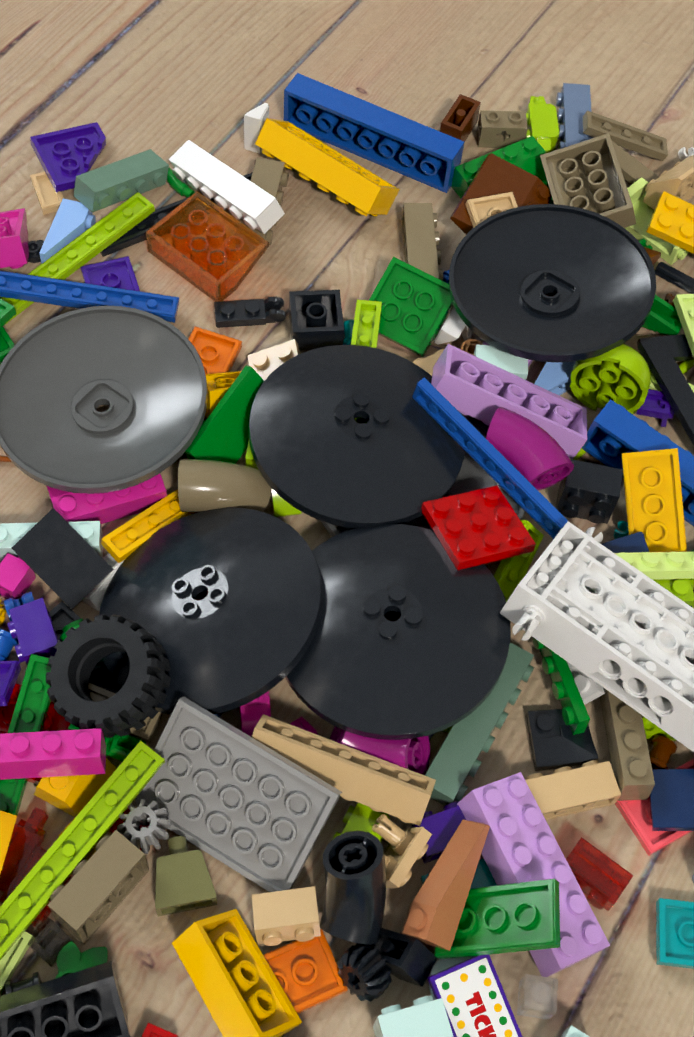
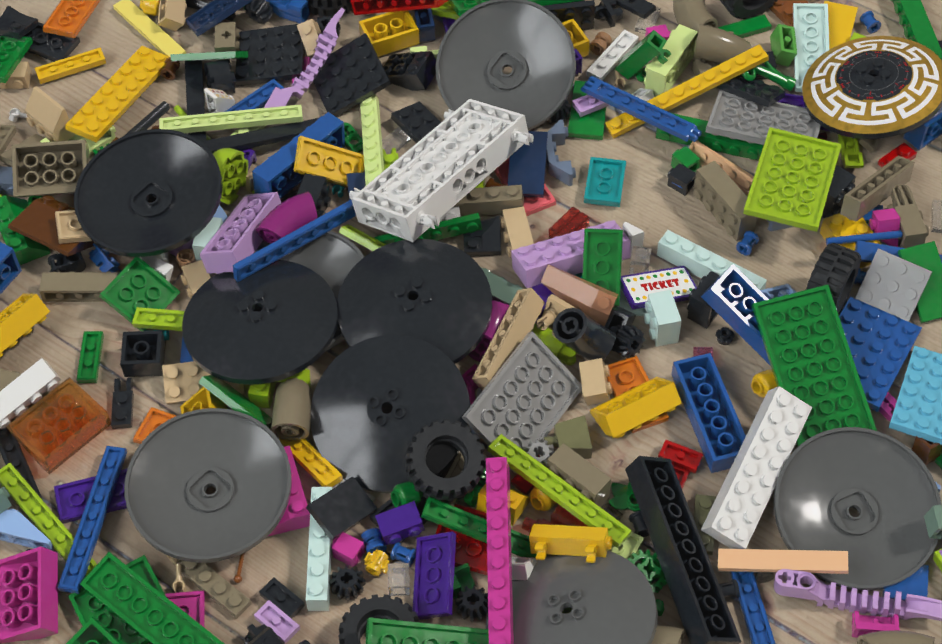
camera: 80 degrees left, 5 degrees down
(318, 273) = (90, 357): none -> green tile
(450, 231) = (65, 263): none -> black piece
(477, 527) = (345, 252): red plate -> none
(572, 977) = (634, 234): none -> white slope

